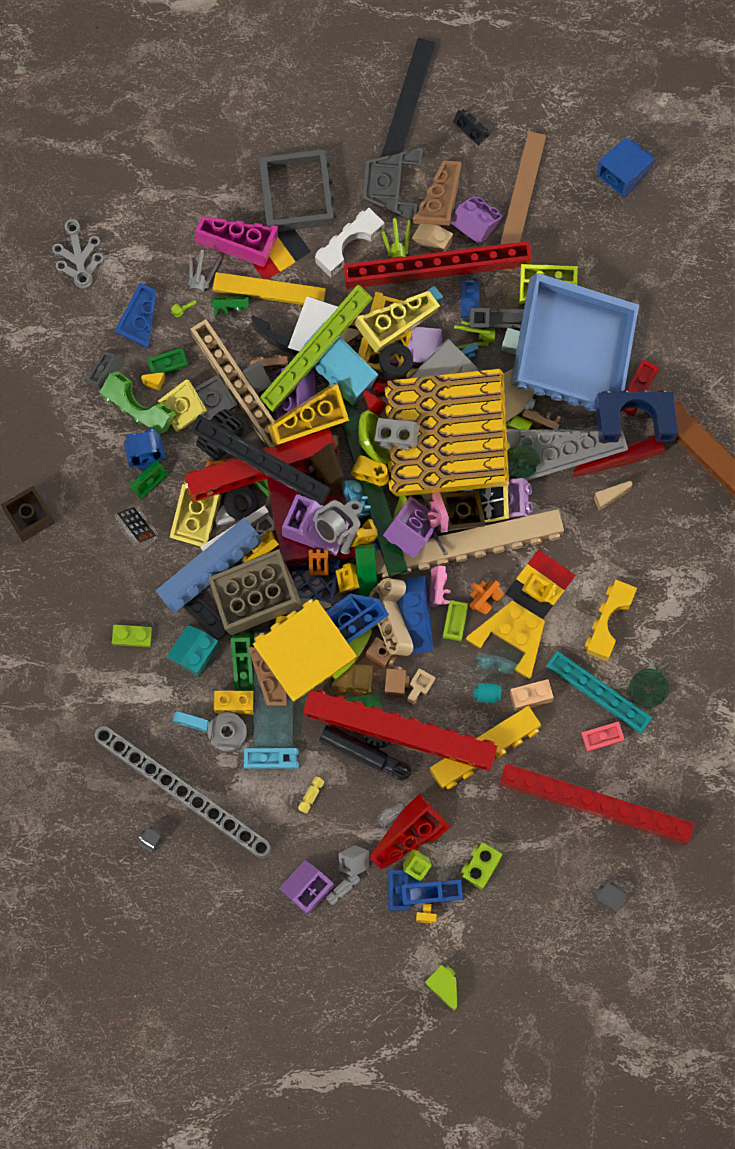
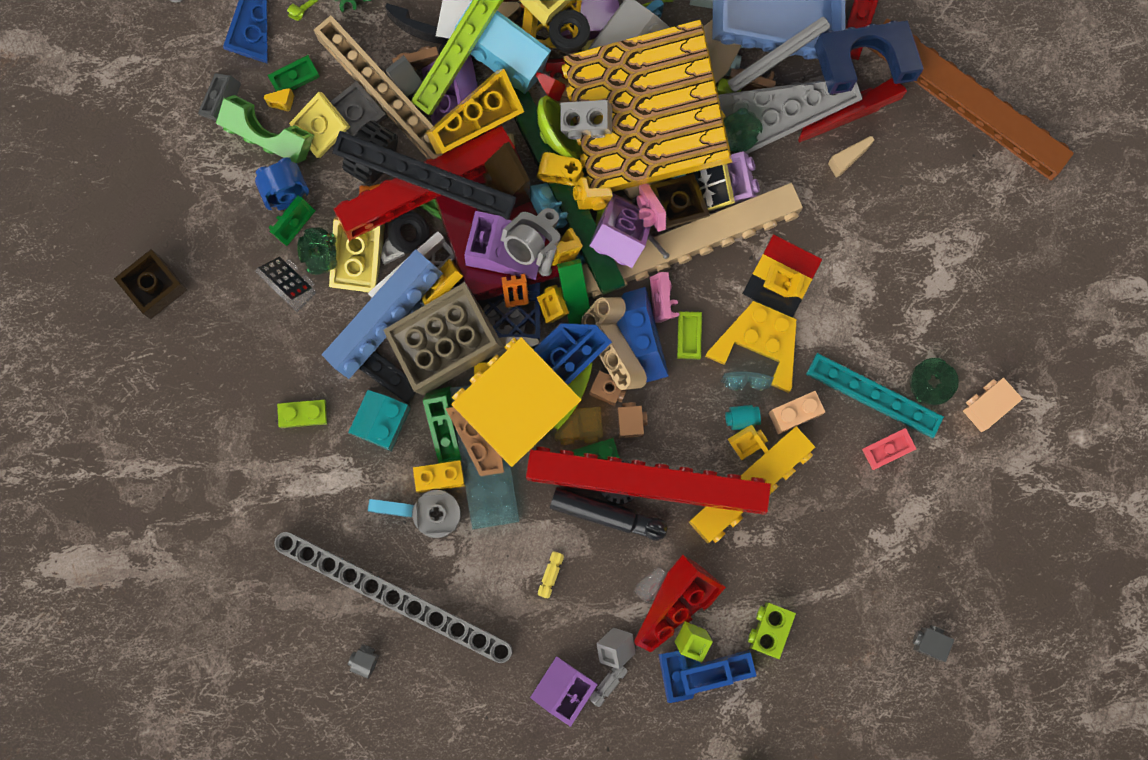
camera: 15 degrees left, 5 degrees up
(164, 516) = (325, 242): none -> clear green plate
(270, 758) = (494, 538): medium azure plate -> none
(391, 497) = (591, 198): none -> yellow bracket
(421, 684) = (661, 419): tan plate -> none
(426, 916) = (715, 702): yellow tile -> none
(488, 713) = (748, 441): none -> yellow bracket
(490, 590) = (716, 299): orange hips -> none
(563, 404) = (779, 54): none -> light grey axle
(596, 804) = (897, 532): red brick -> none
(619, 598) = (868, 334): yellow arch -> none
(693, 713) = (992, 404): none -> light nougat brick

